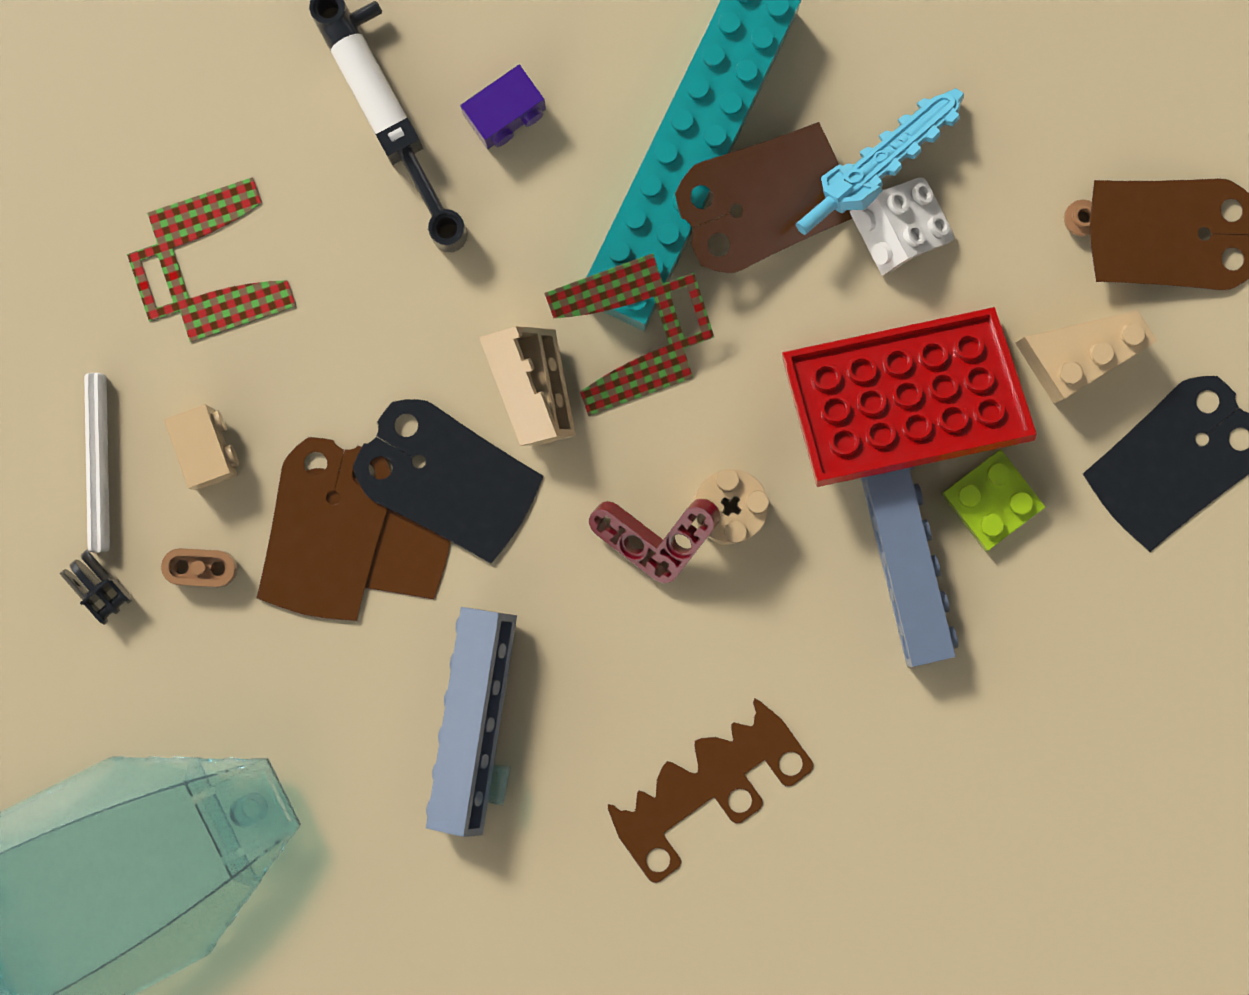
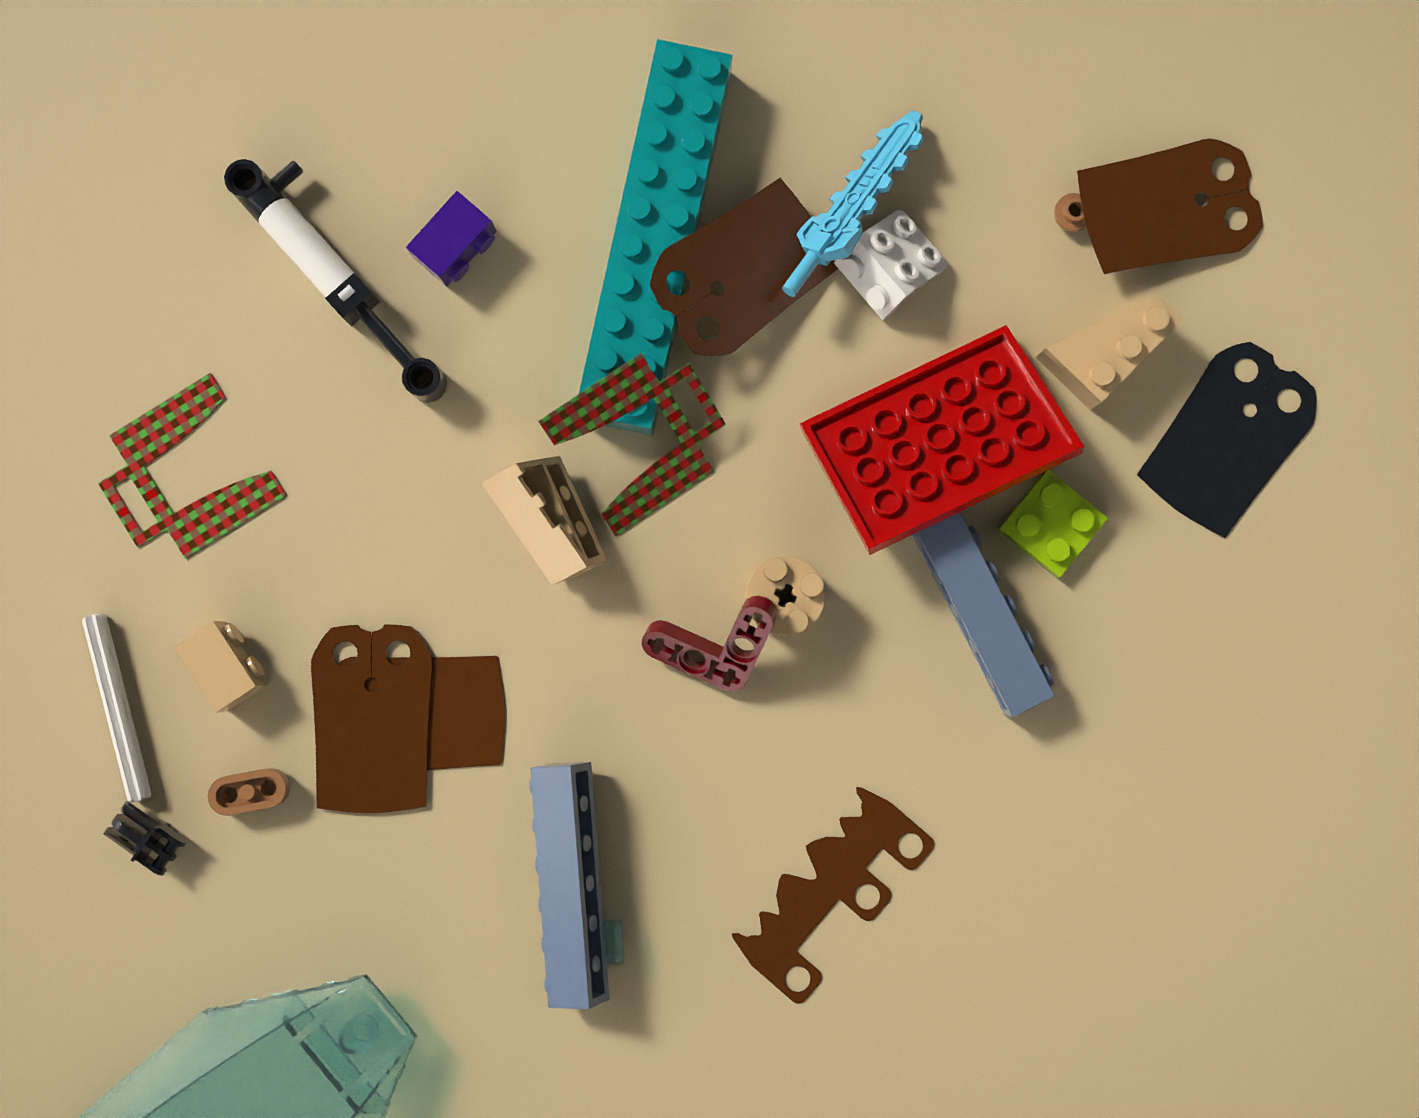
camera: 15 degrees left, 0 degrees up
(463, 490) = (506, 638): black piece -> none

